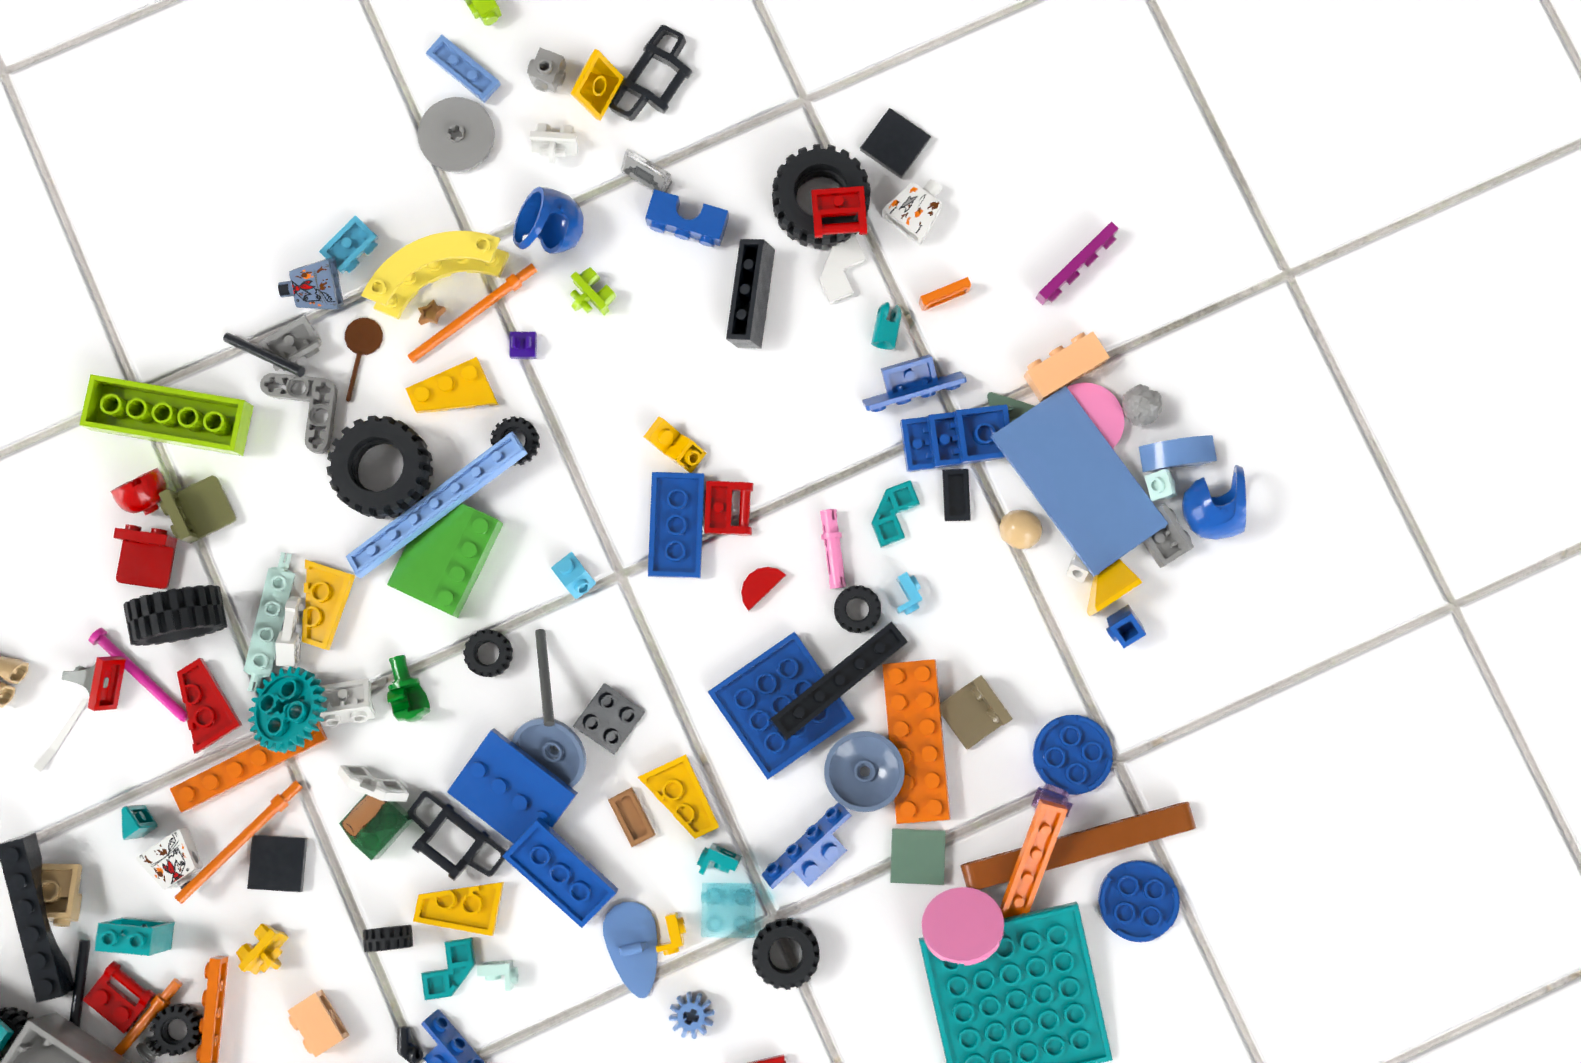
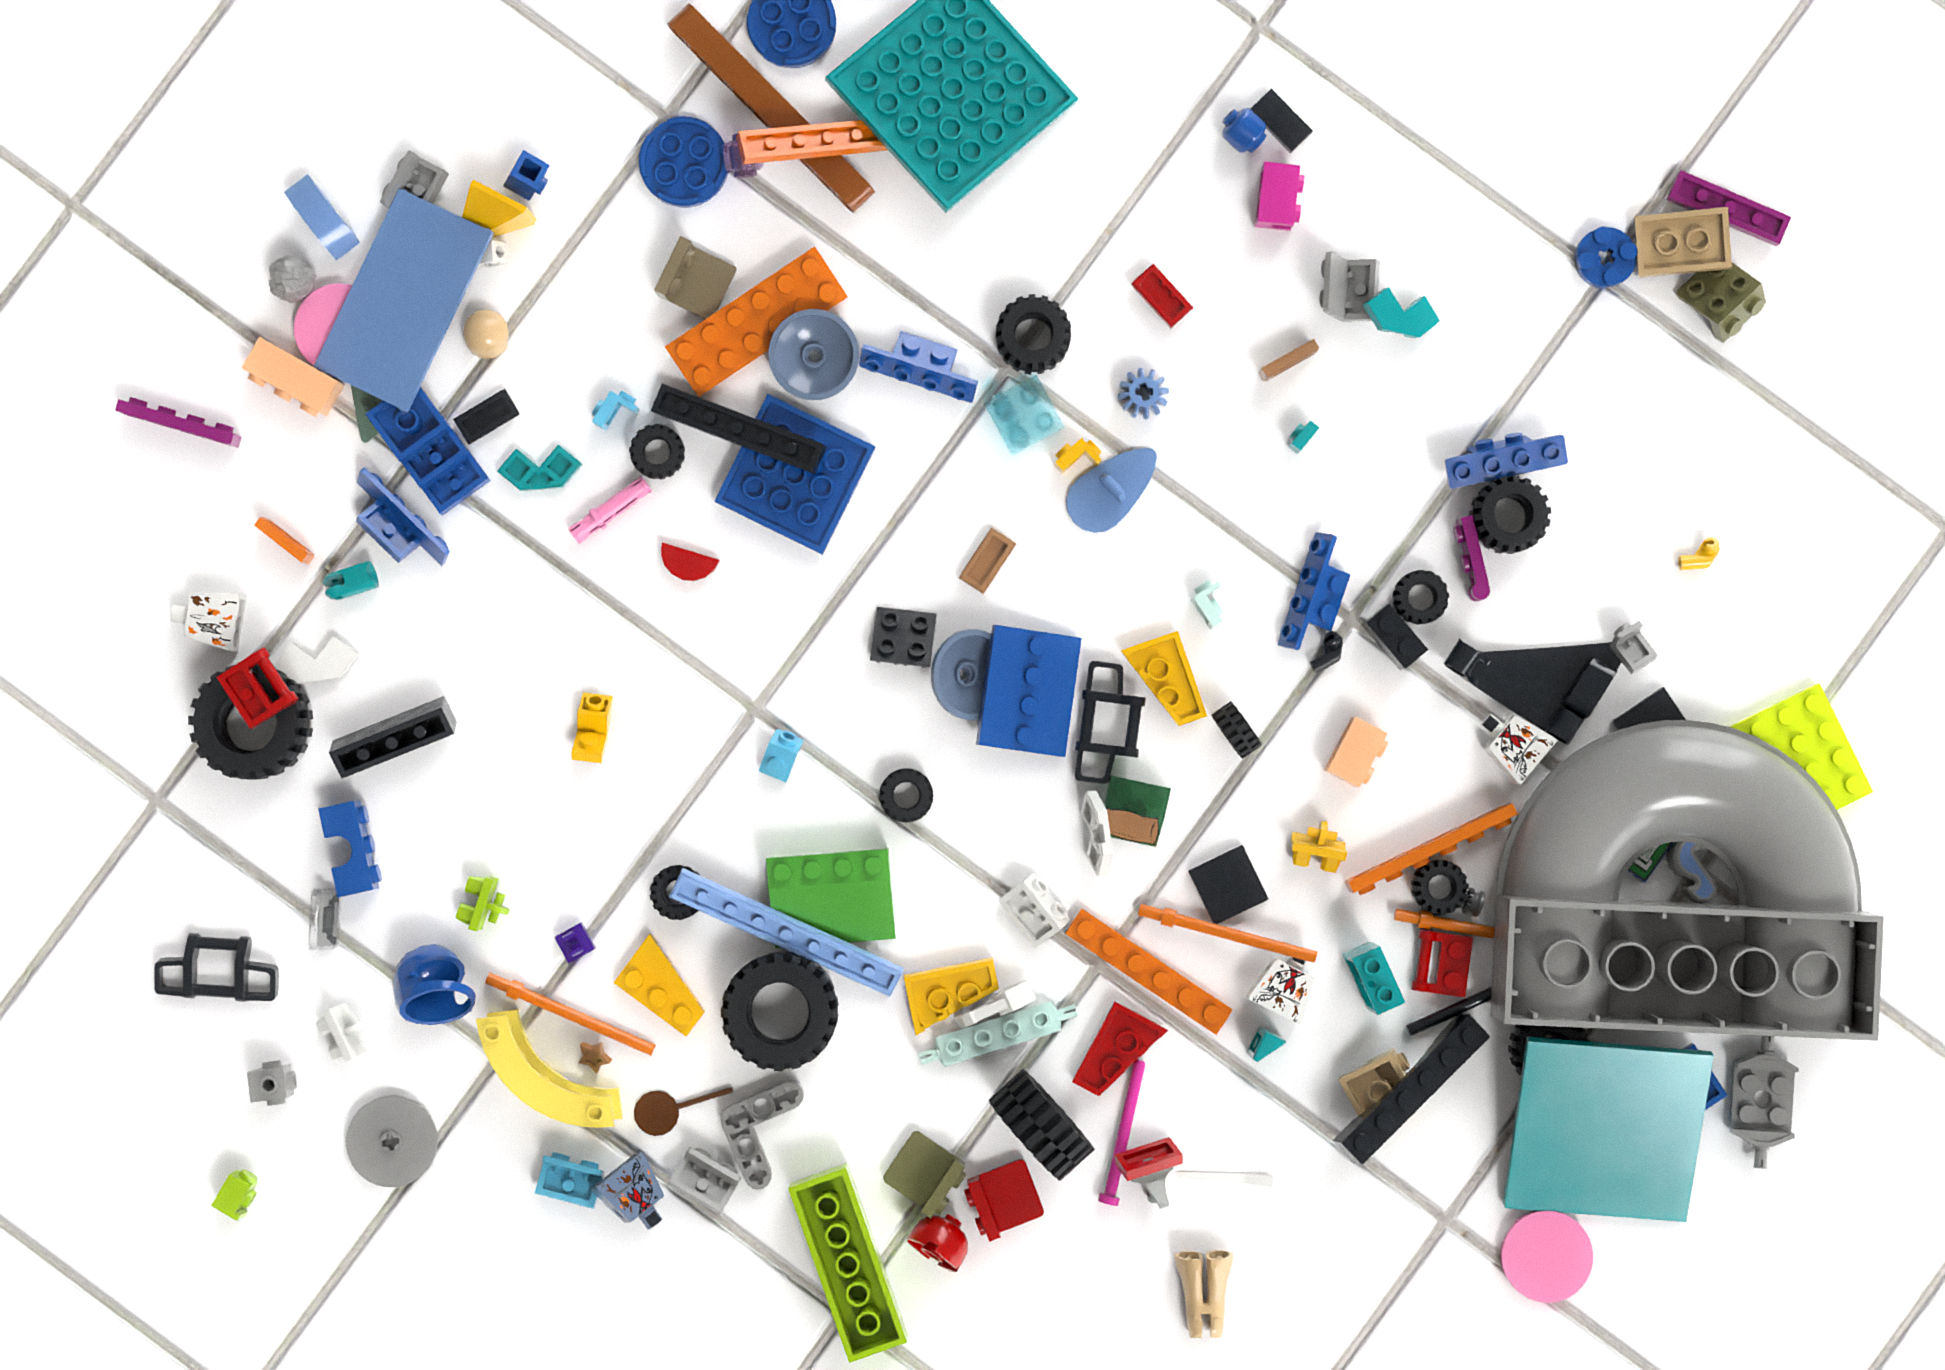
camera: 120 degrees left, 5 degrees up
(264, 354) = (731, 1199): black bar -> none
(287, 709) = (1072, 960): teal gear -> none
(405, 694) = (992, 853): green piece -> none
(460, 962) = (1247, 652): teal tile -> none
(463, 68) = (317, 1174): medium blue plate -> none
(544, 677) = (897, 721): dark grey bar -> none
(560, 872) = (1078, 597): blue plate -> none
(597, 84) = (257, 1021): yellow slope -> none
(676, 525) = (672, 680): blue plate -> none
(682, 795) = (937, 522): yellow wing -> none
(719, 508) = (631, 646): red plate -> none
(723, 859) = (976, 450): teal bracket -> none
(895, 143) = (151, 679): black tile -> none
(917, 856) = (868, 259): sand green tile -> none
(962, 926) = (908, 175): bright pink tile -> none
(1161, 485) = (363, 216): light aqua bracket -> none
(1216, 516) = (362, 142): blue piece -> none

